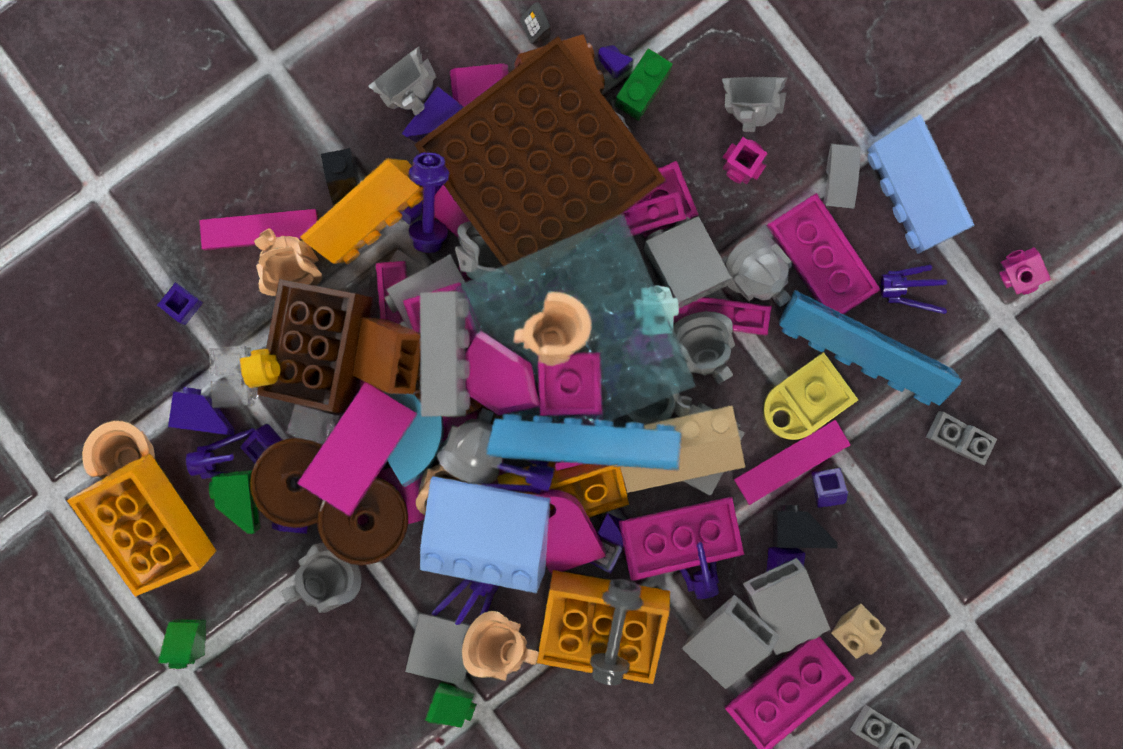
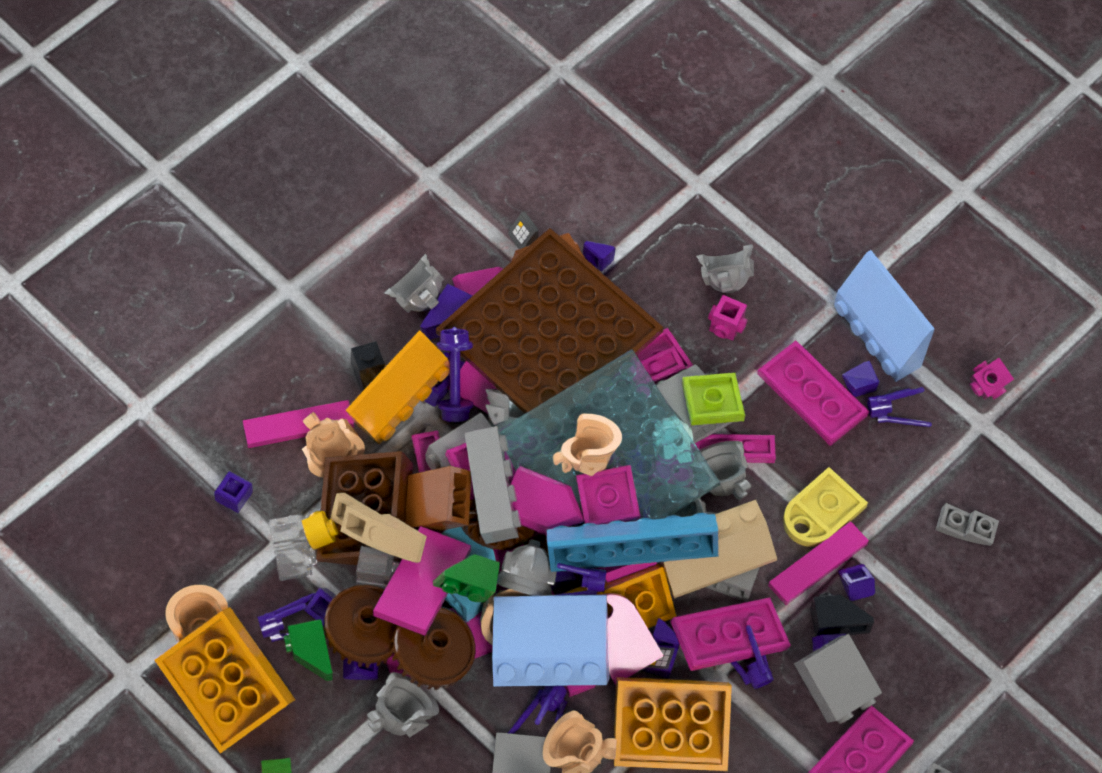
camera: 15 degrees left, 25 degrees down
(195, 412) = (264, 582): dark purple slope -> none
(314, 391) = (377, 530): none -> tan slope
(405, 456) = (471, 578): none -> green slope
(608, 666) = (686, 673): dark grey piece -> none
(643, 84) = (629, 265): green brick -> none
(708, 268) = (713, 399): none -> lime plate
(730, 642) = (791, 713): light grey brick -> none
(759, 270) = (762, 405): light grey helmet -> none
(843, 176) = (816, 323): light grey slope -> none
(859, 631) = (909, 694): tan brick -> none
(869, 349) = (867, 454): dark azure slope -> none
(879, 250) = (861, 379): none -> dark purple slope

